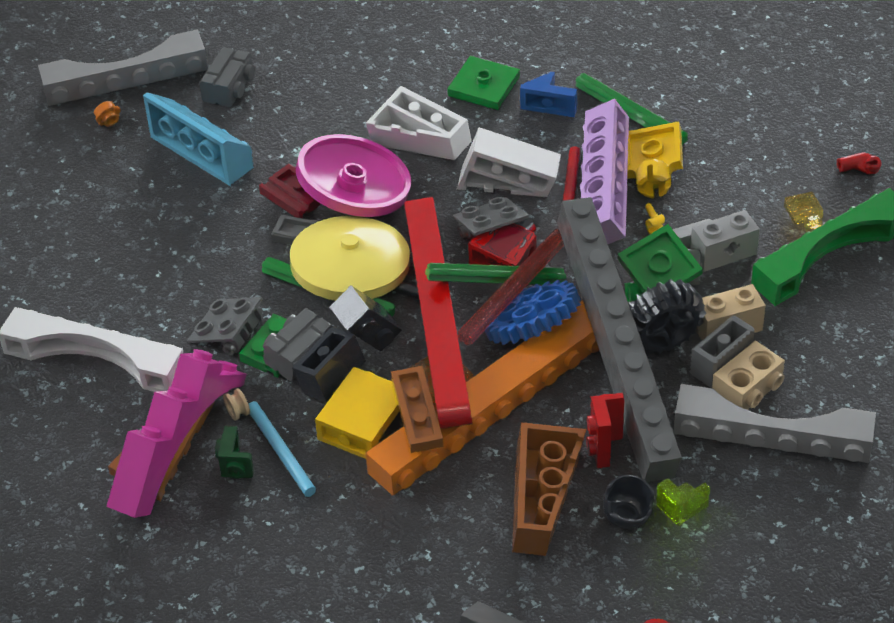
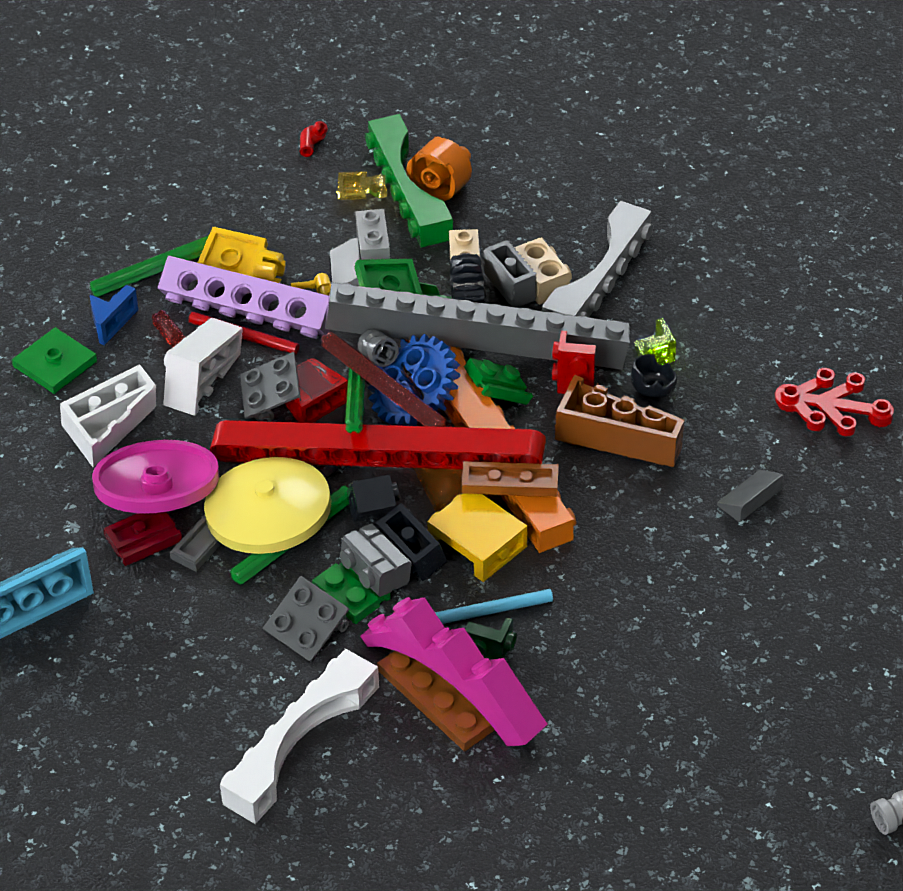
camera: 75 degrees left, 0 degrees up
(551, 267) = (378, 347): none -> dark grey wheel
(552, 137) = (167, 328): none -> clear red axle
(565, 378) = (498, 381): none -> green plate
(849, 259) = (440, 168): none -> orange brick

